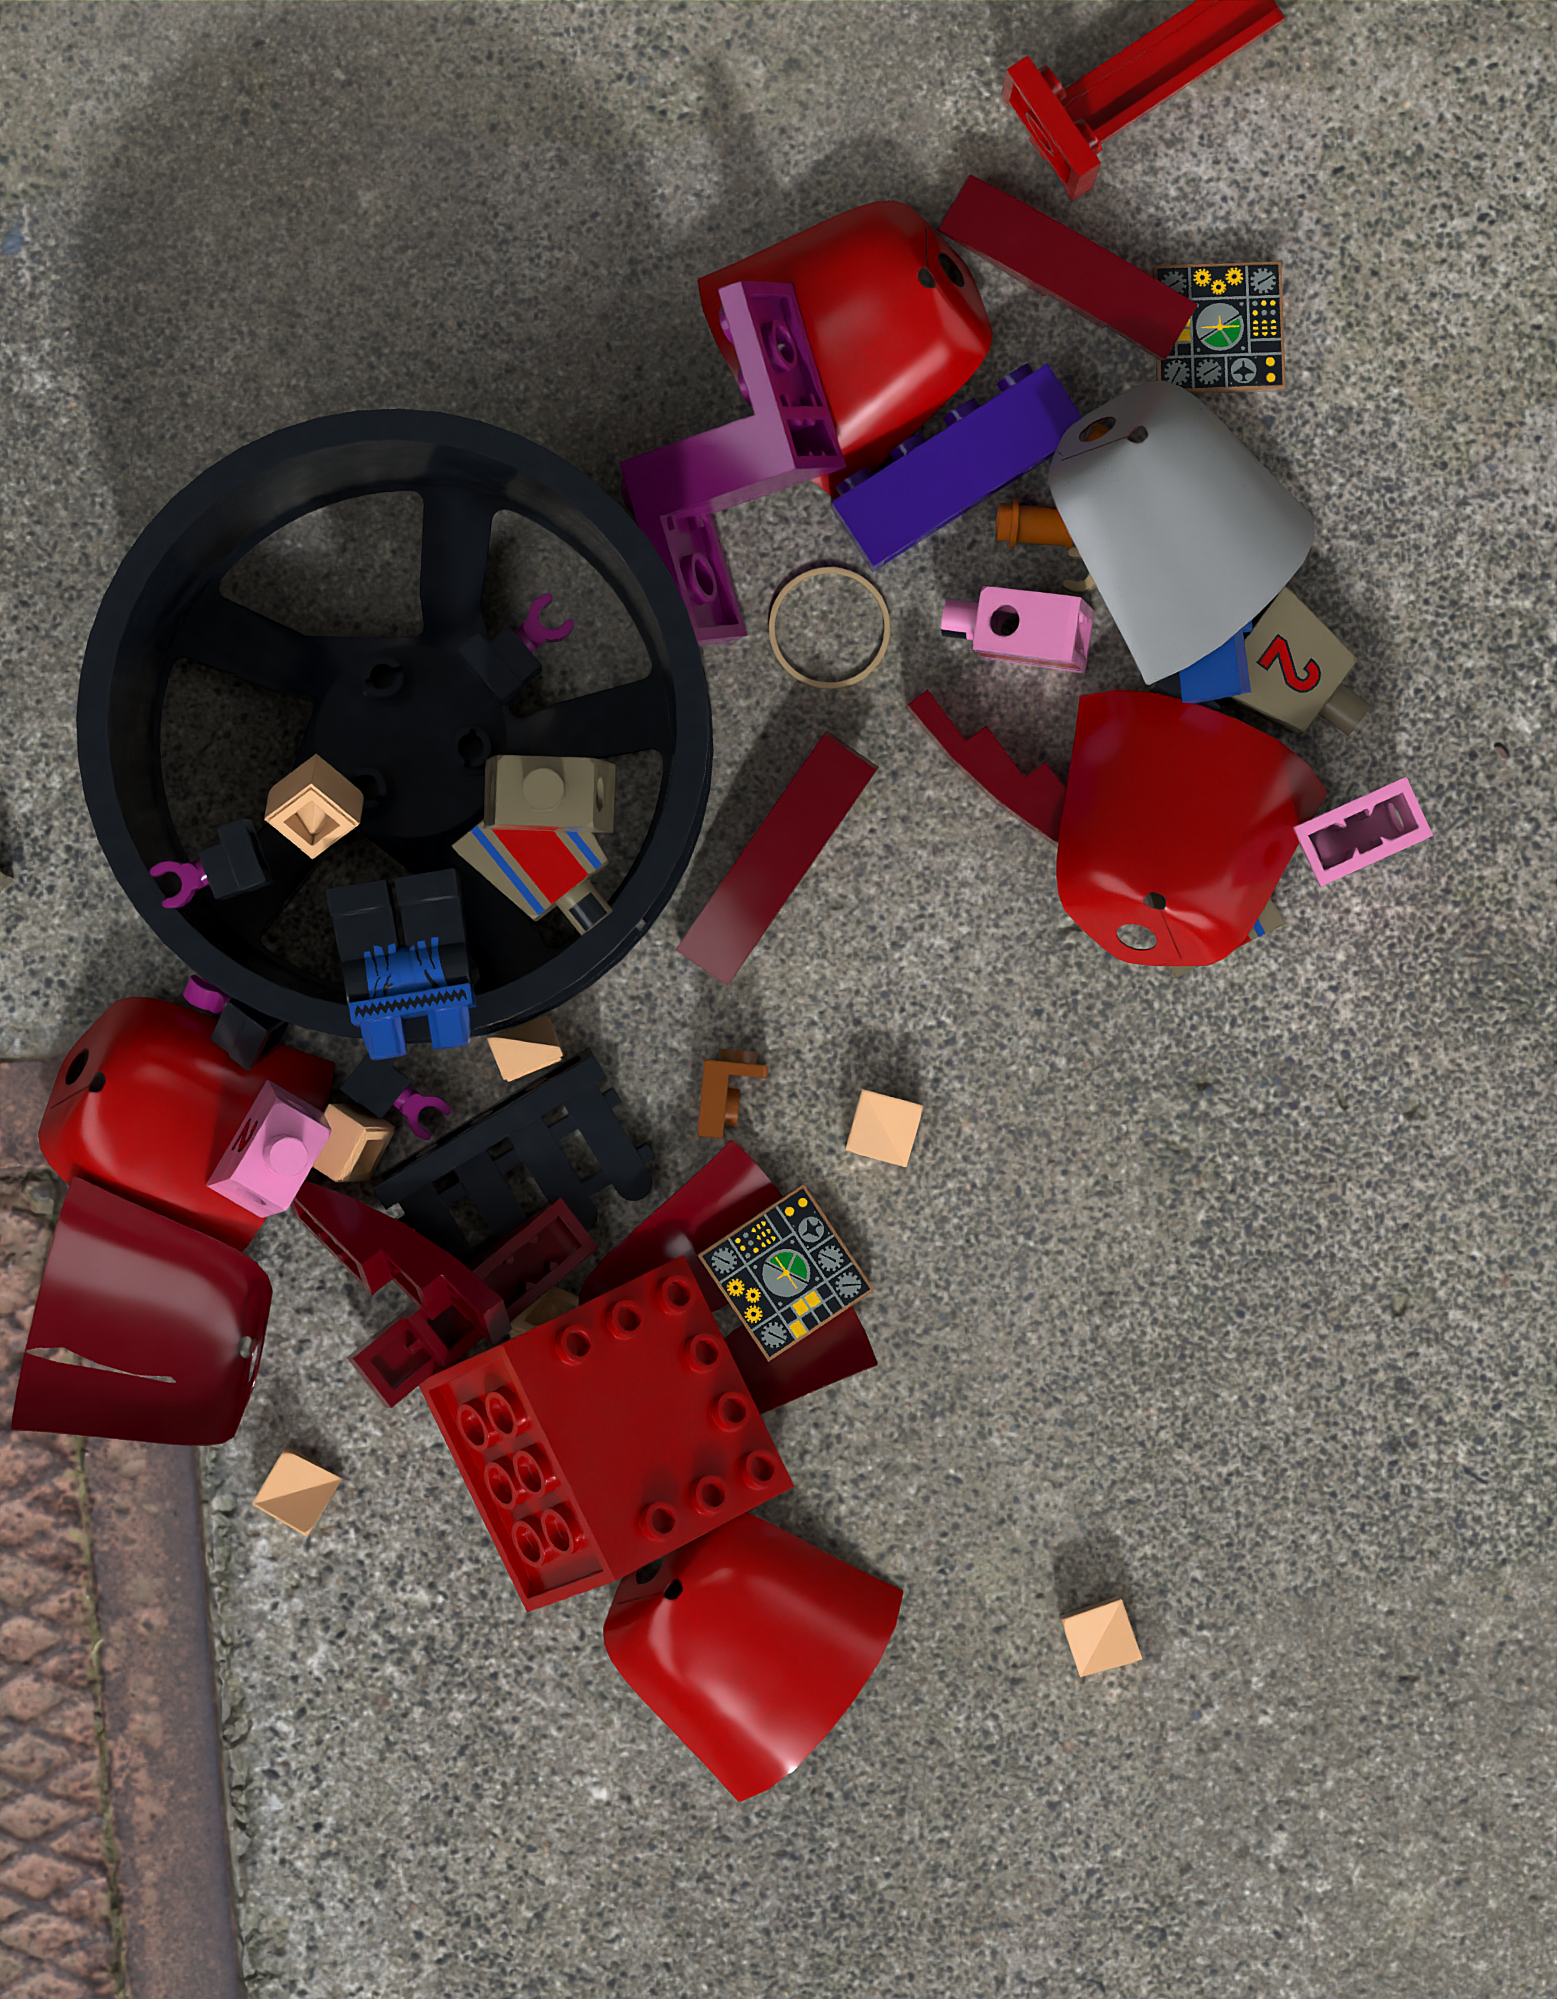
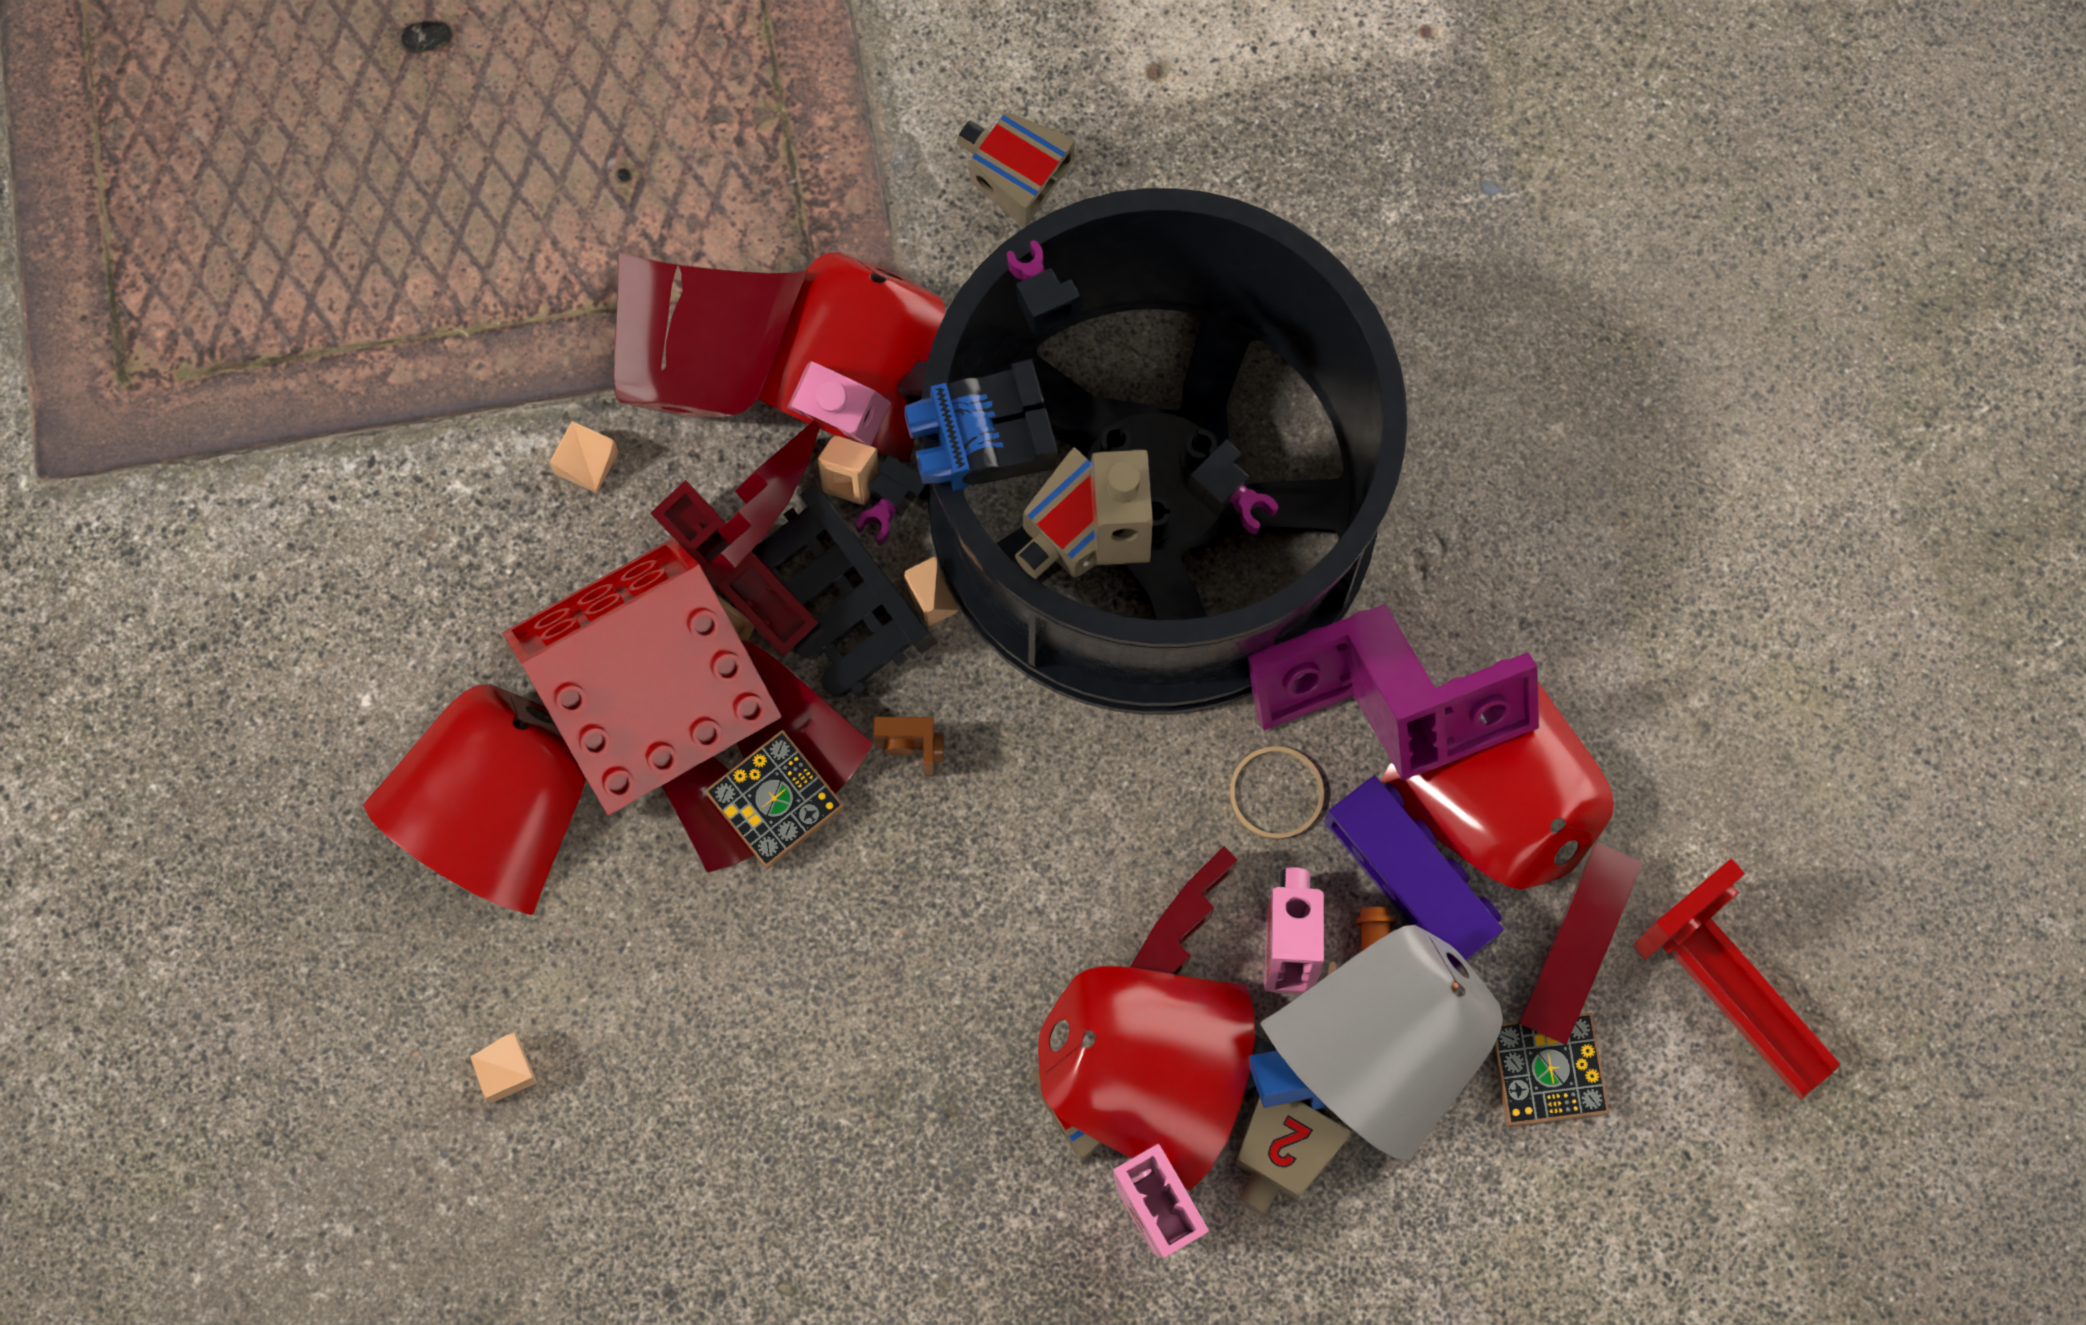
camera: 80 degrees right, 15 degrees down
(314, 806) = (1095, 356): light nougat slope -> none
(777, 858) = (1095, 763): dark red slope -> none
(884, 1128) = (892, 863): light nougat slope -> none

